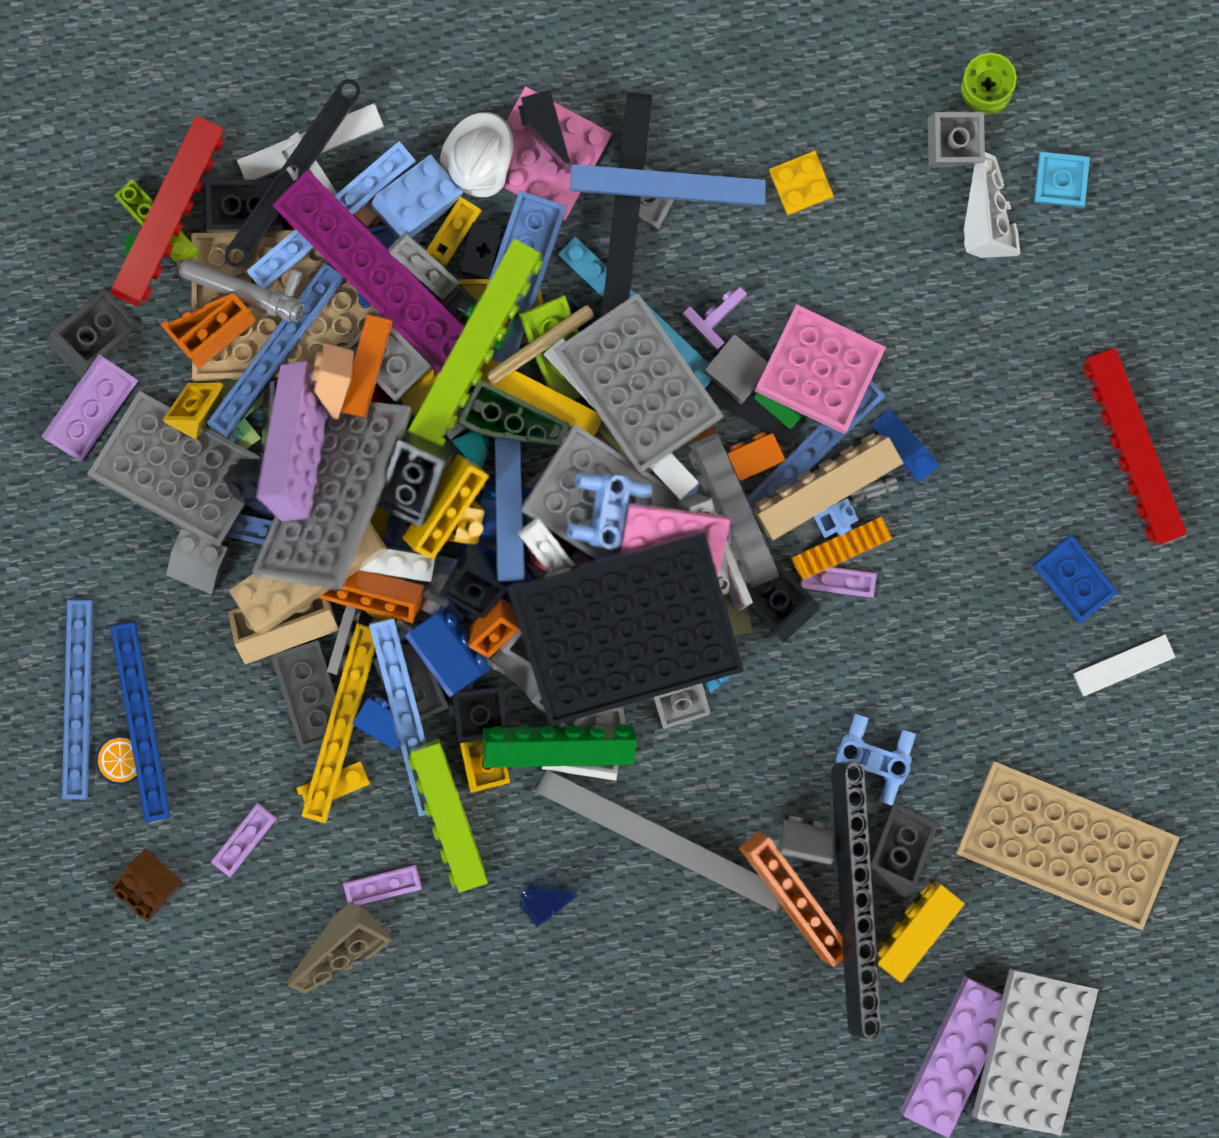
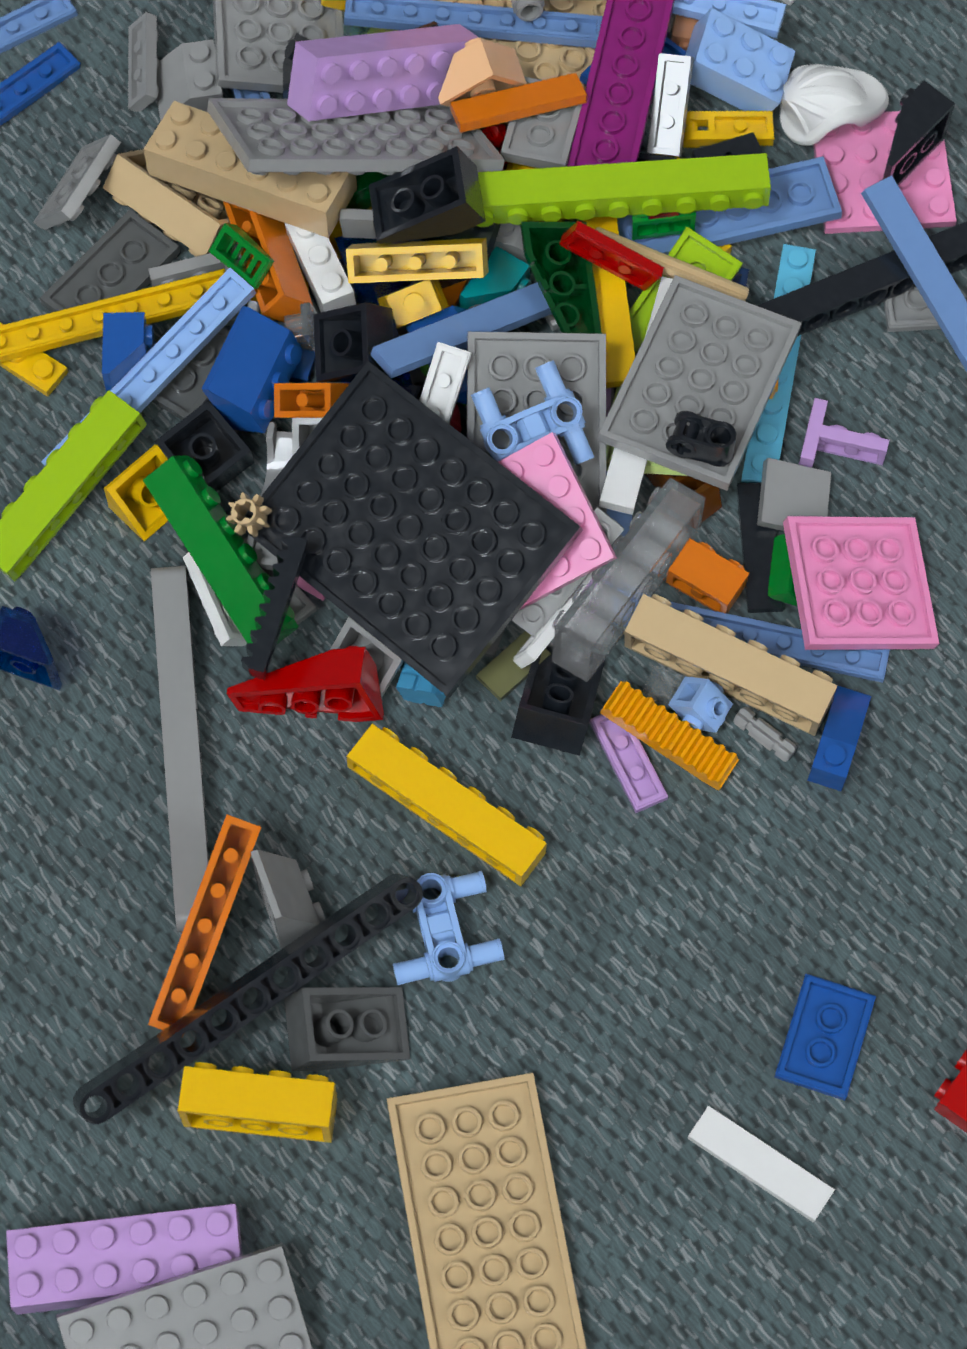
camera: 55 degrees right, 20 degrees down
(162, 581) = (142, 62): none -> light grey plate
(232, 679) = (78, 182): none -> light grey plate
(355, 619) = (222, 249): none -> green slope
(387, 524) = (357, 223): none -> light grey tile
(515, 380) = (611, 255): none -> red tile
(553, 726) = (240, 509): none -> tan gear
(624, 739) = (276, 606): none -> black gear
(685, 416) = (701, 439): none -> black piece
(688, 724) = (329, 682): none -> red wedge
(800, 708) = (447, 804): none -> yellow brick

